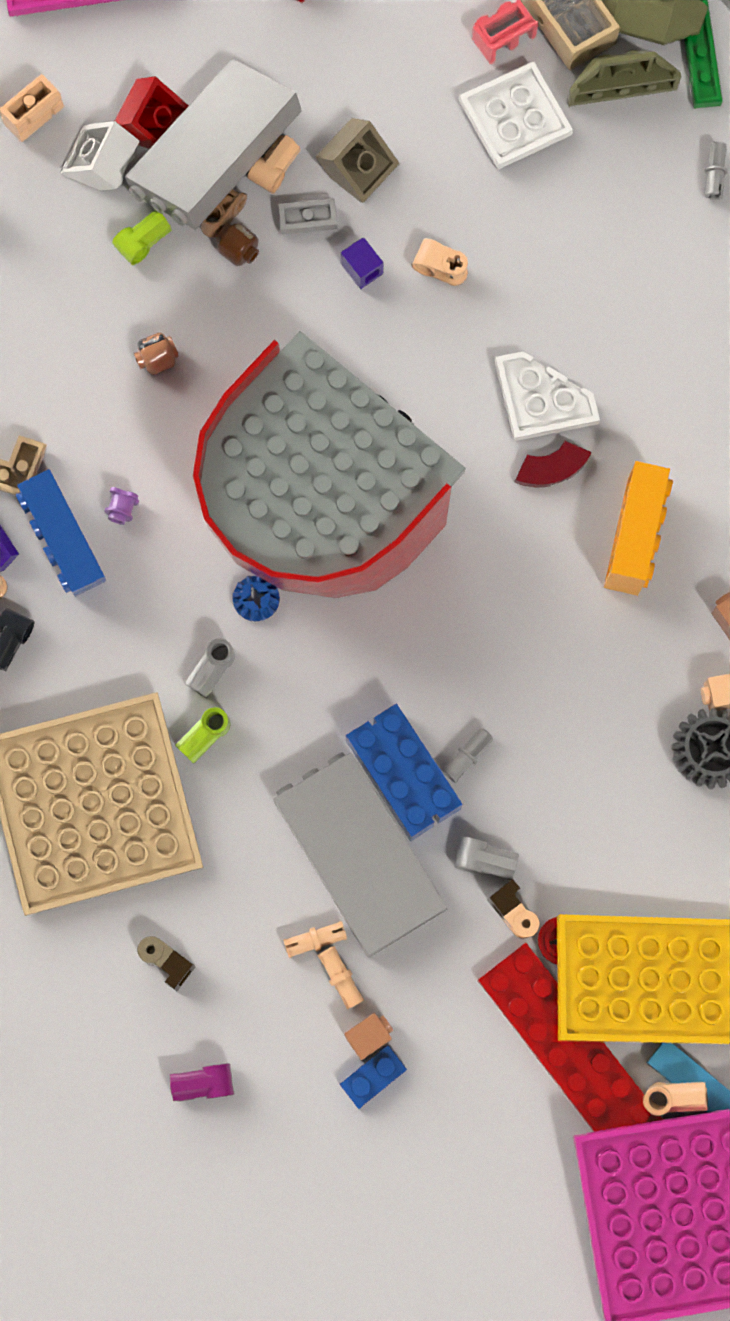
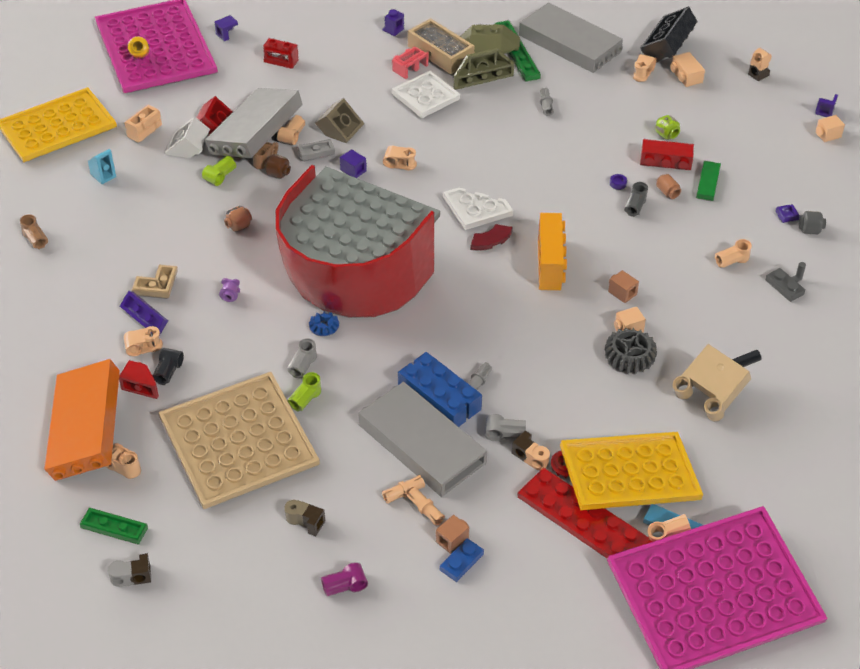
camera: 10 degrees left, 30 degrees down
(59, 528) = (195, 300): blue piece -> none

